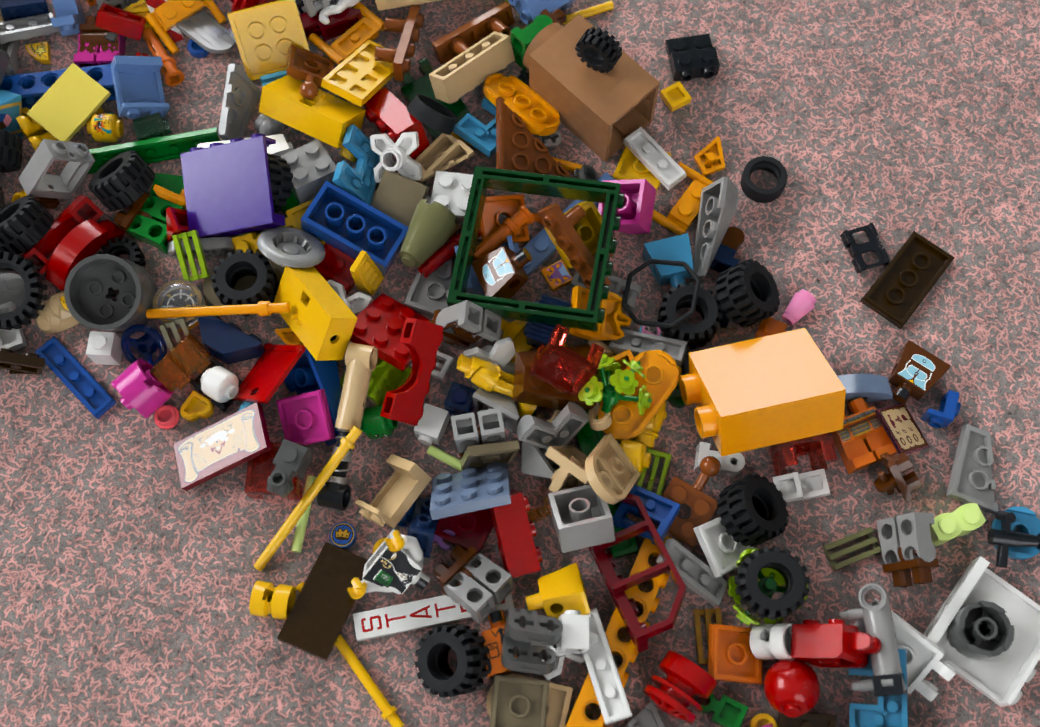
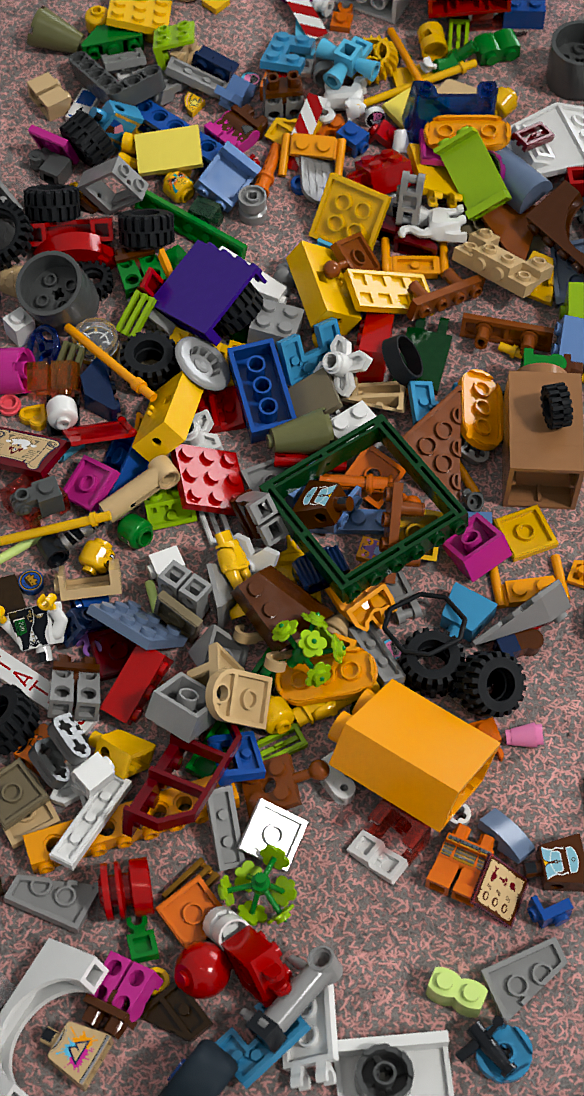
camera: 45 degrees right, 10 degrees down
(120, 21) = (263, 123): red slope -> none
(182, 92) = (252, 205): none -> light grey wheel
(238, 103) = (278, 241): light grey wing -> none
(366, 273) = (235, 429): yellow slope -> none
(372, 468) = (96, 556): none -> yellow head
(407, 401) = (160, 529): red arch -> none
(459, 399) = (198, 561): clear blue brick -> none
(472, 67) = (472, 352): tan brick -> none
(553, 433) = (237, 643): light grey brick -> none
(563, 366) = (277, 592): clear red panel -> none
(654, 158) = (539, 533): white tile -> none
(752, 510) = (333, 829): black tyre -> none
(787, 567) = (256, 856): black tyre -> none
(871, 541) = (337, 935): olive tile -> none
(895, 466) = (447, 913): reddish brown hips -> none
(908, 548) = (398, 967): light grey hips -> none

